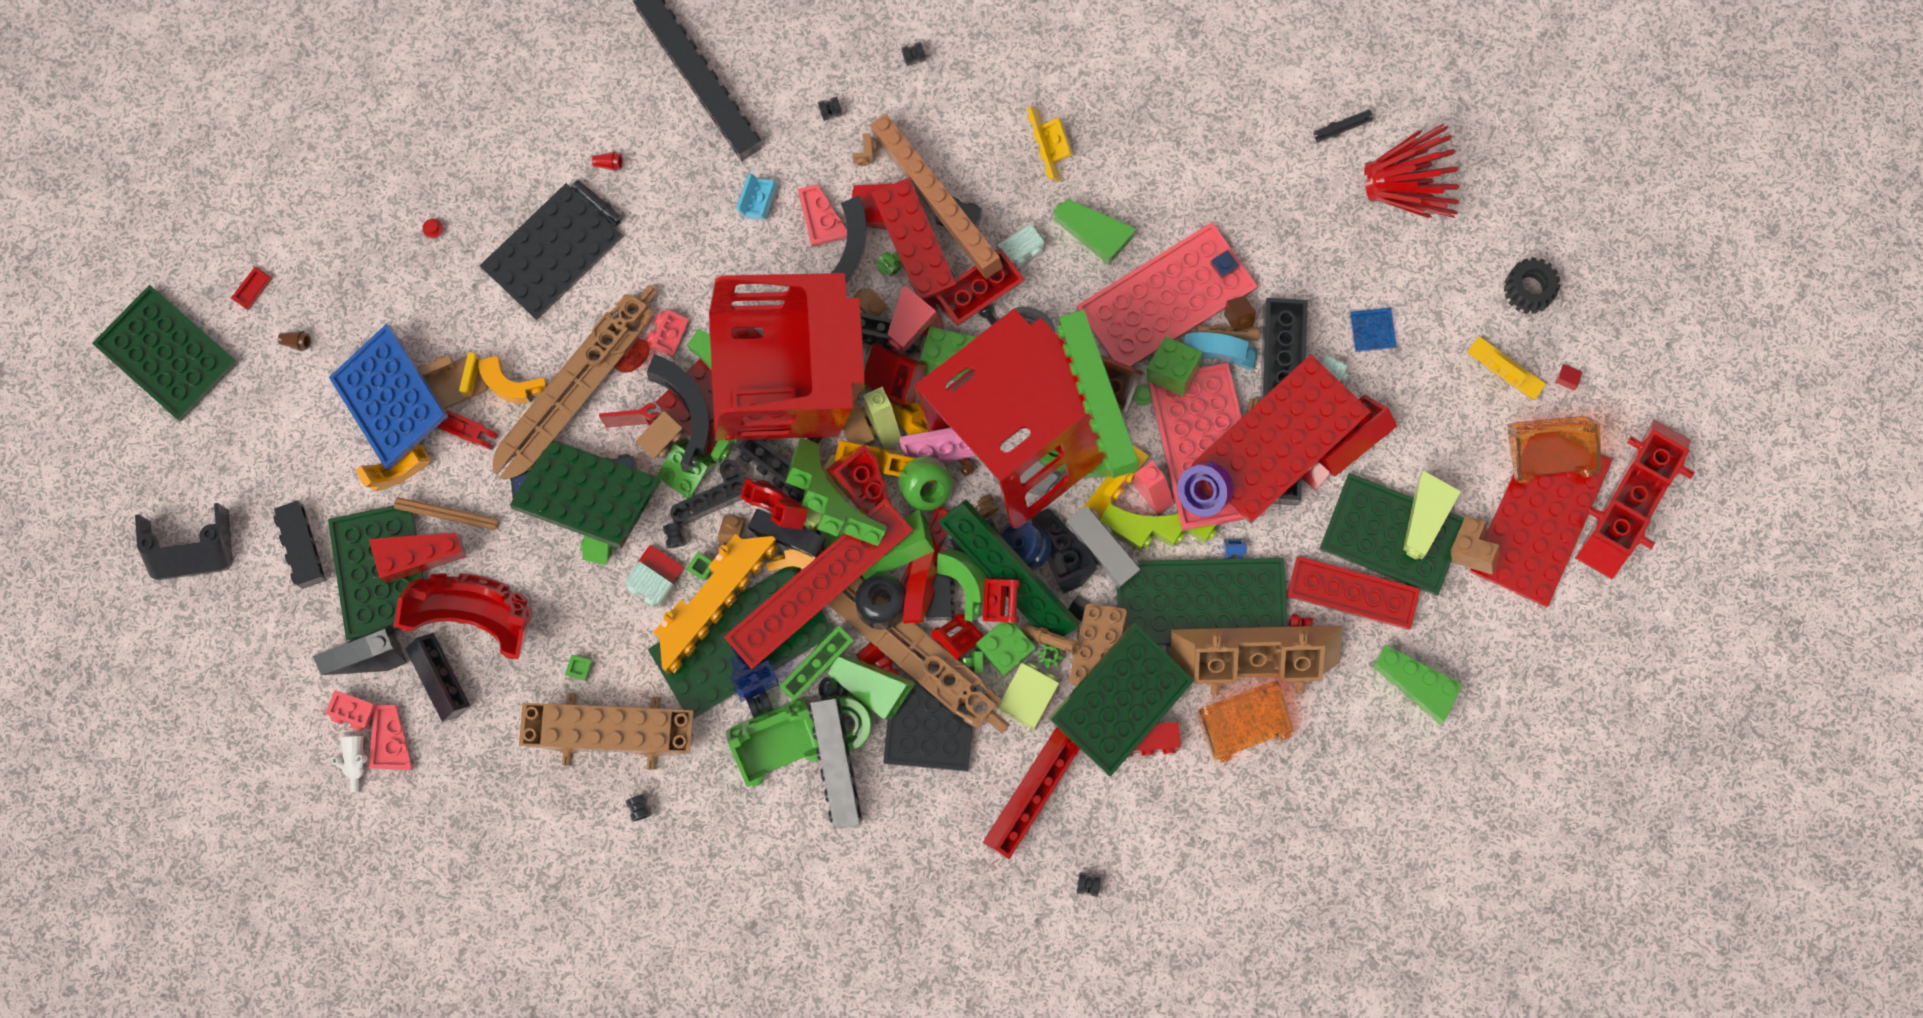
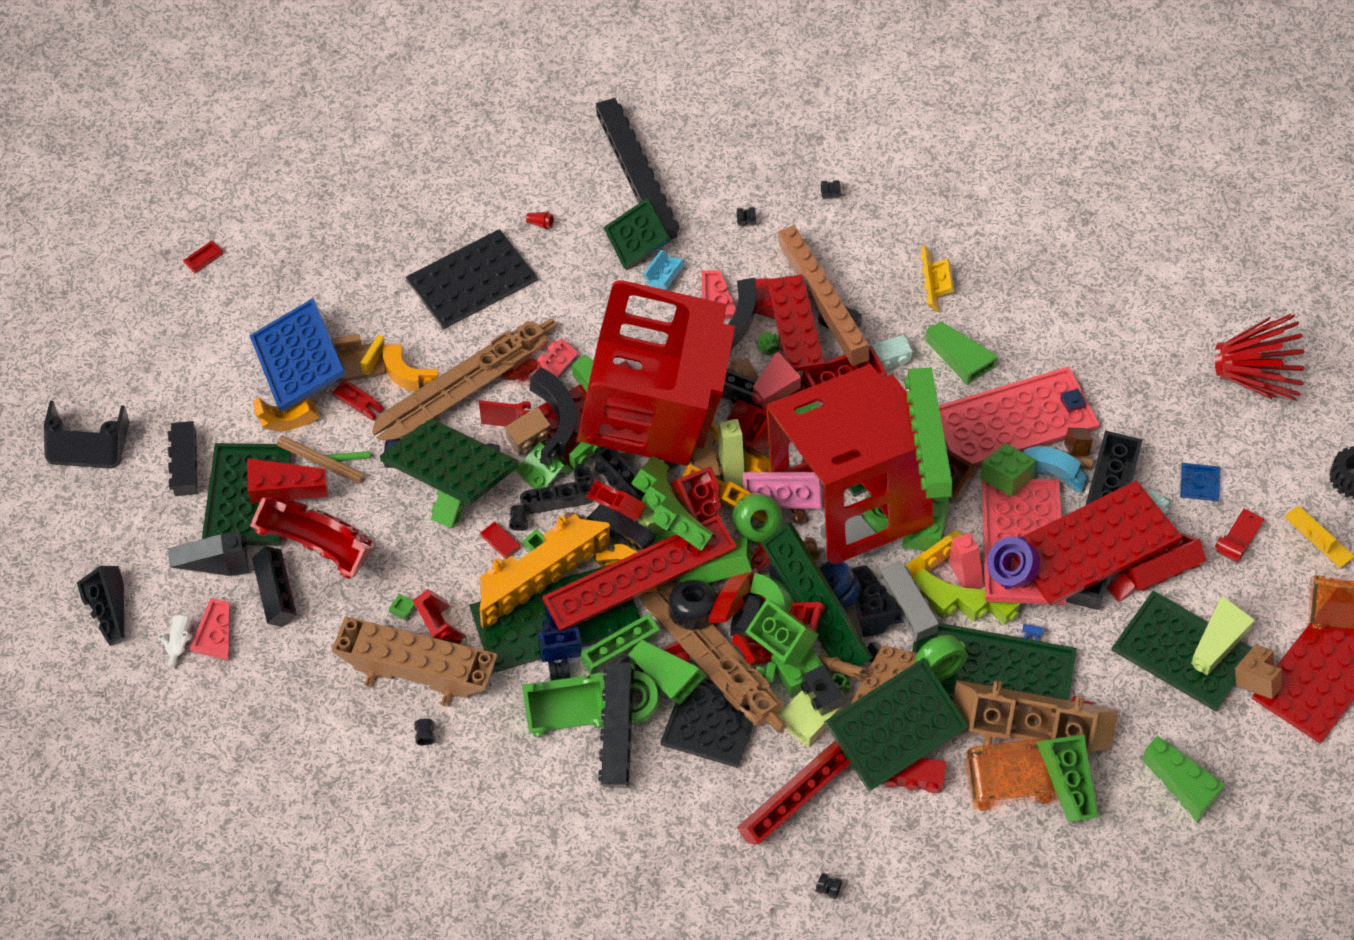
camera: 10 degrees right, 20 degrees down
(164, 353) = (114, 290): dark green plate -> none
(263, 727) = (105, 595): none -> black wedge
(297, 340) = (229, 301): reddish brown cone -> none
(350, 709) = (187, 597): coral bracket -> none
(432, 228) = (373, 241): red plate -> none
(473, 500) = (350, 456): none -> bright green bar
(603, 208) = (525, 252): black pin -> none
(617, 680) = (430, 608): none -> red panel
(649, 584) = (483, 551): light aqua brick -> none
(717, 159) = (637, 233): none -> dark green plate
(865, 158) = (768, 258): medium nougat bracket -> none
(982, 623) = (782, 633): none -> bright green brick
(1033, 661) = (821, 680): none -> black brick
(1143, 395) = (974, 492): bright green plate -> none
(1151, 609) = (943, 655): none -> bright green piece
(1308, 713) = (1071, 775): none -> bright green wedge
(1335, 129) = (1206, 315): black pin -> none
(1353, 593) = (1136, 691): red plate -> none
(1425, 386) = (1240, 536): none -> red door

